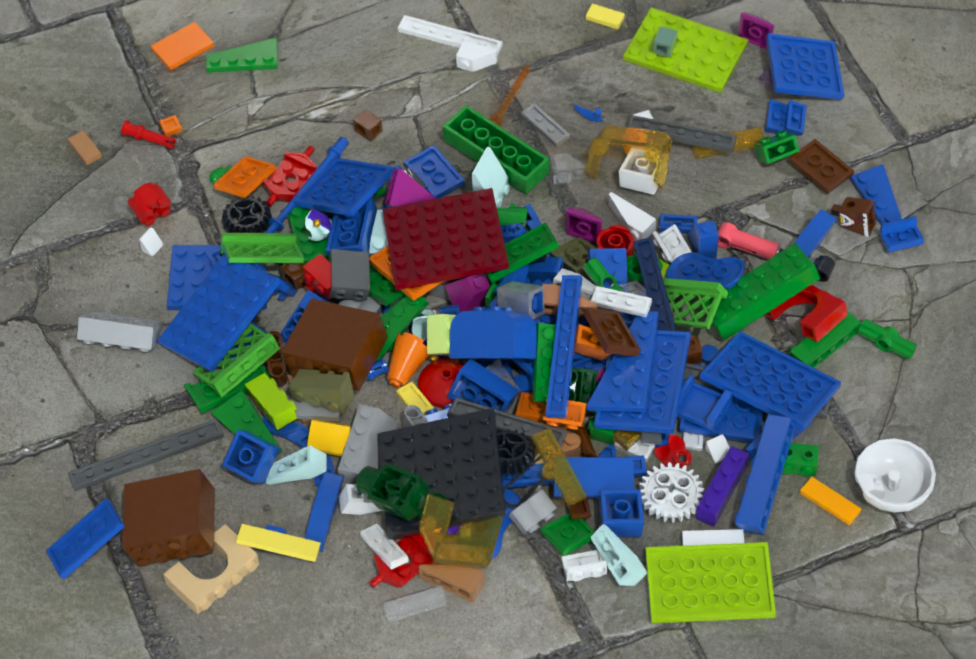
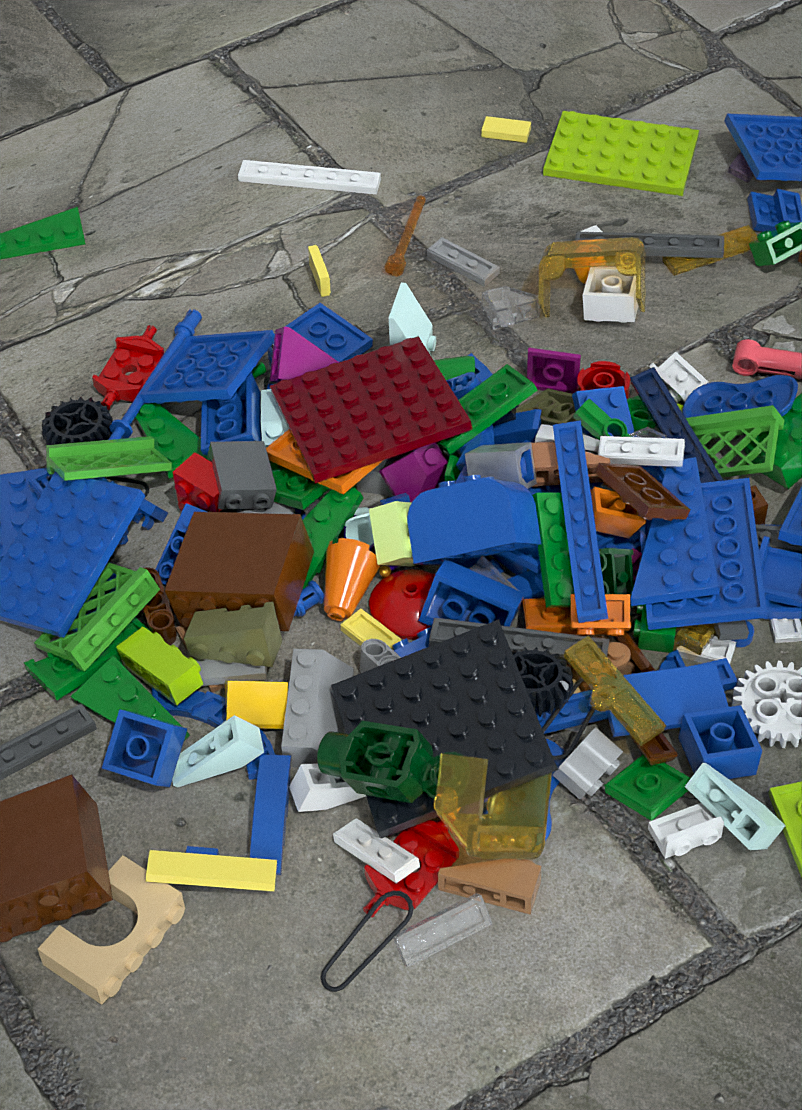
camera: 10 degrees left, 5 degrees down
(218, 173) = (30, 380): green cylinder -> none
(244, 176) = (65, 376): orange tile -> none
(293, 274) = (159, 489): reddish brown brick -> none
(318, 225) = (183, 417): piece -> none
(367, 125) = (223, 291): reddish brown brick -> none
(372, 608) = (376, 951): none -> black piece
(439, 117) = (319, 270): none -> light yellow tile
(473, 133) = (374, 280): green brick -> none
(475, 56) = (350, 194): white slope -> none
(593, 116) = (519, 242): blue bar -> none
(637, 221) = (604, 347): white slope -> none
(665, 42) = (596, 142): sand green brick -> none
(673, 452) = (764, 648): red plate -> none
(684, 228) = (689, 351): blue tile -> none
(704, 239) = (724, 360): blue slope -> none
(709, 353) = (776, 511): blue tile -> none
(755, 29) = (708, 115): magenta slope -> none

